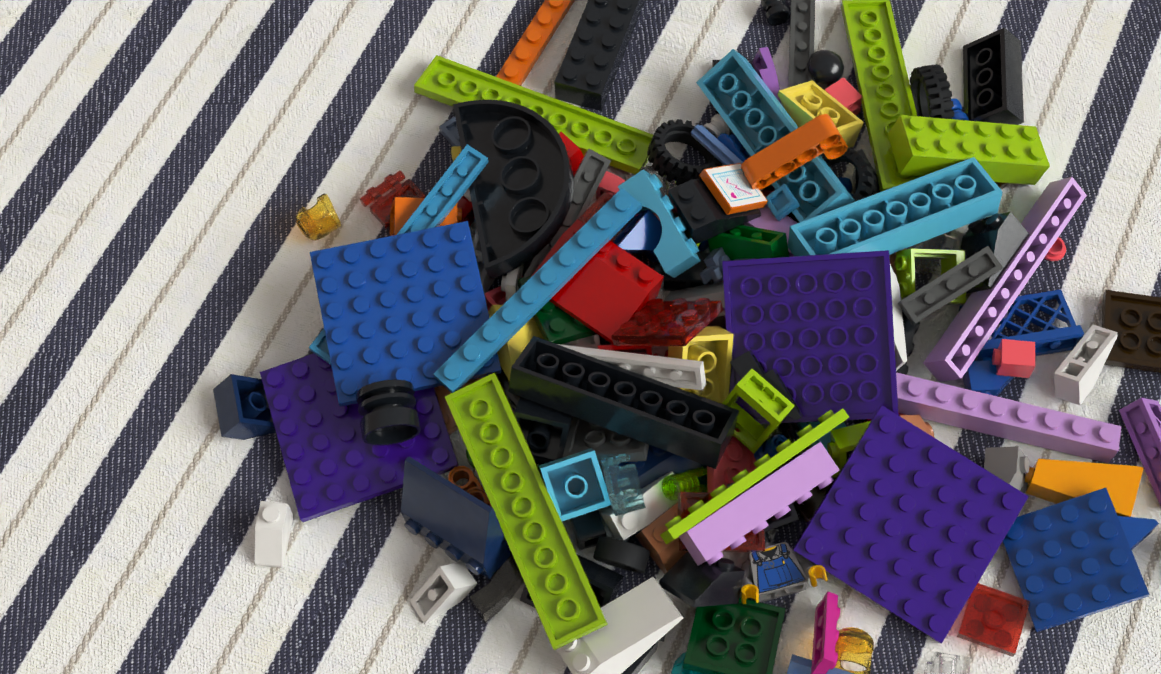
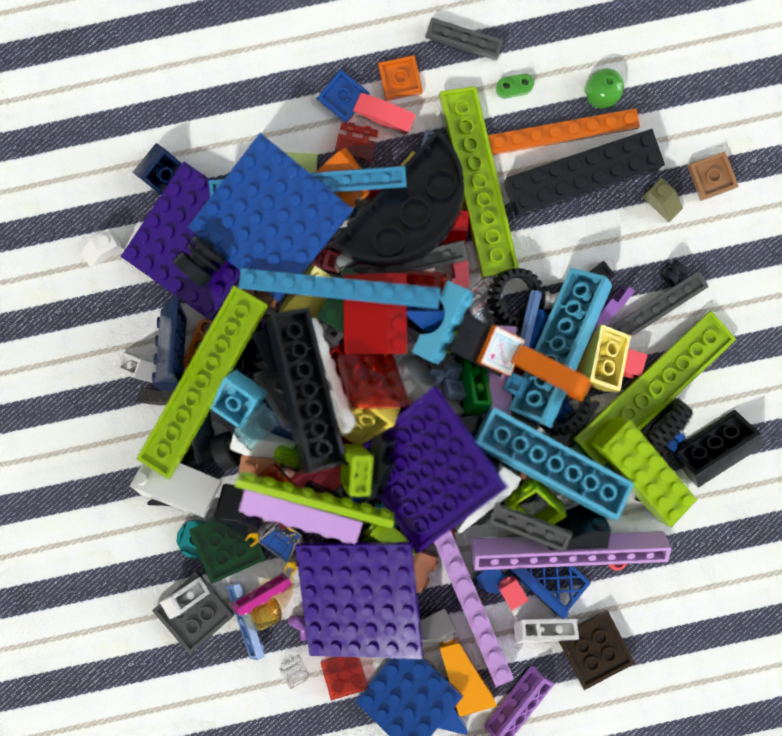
camera: 50 degrees right, 25 degrees up
(318, 220) = (306, 110): clear yellow helmet -> none
(336, 178) = (341, 95): none -> blue tile
(364, 118) = (400, 78): none -> orange tile
(379, 36) = (464, 38): none -> dark grey plate
(389, 151) = (384, 113): none -> coral slope
(468, 23) = (515, 85): none -> bright green plate
(825, 67) = (649, 336): black hair -> none
(896, 626) = (299, 623): none -> medium lavender arm

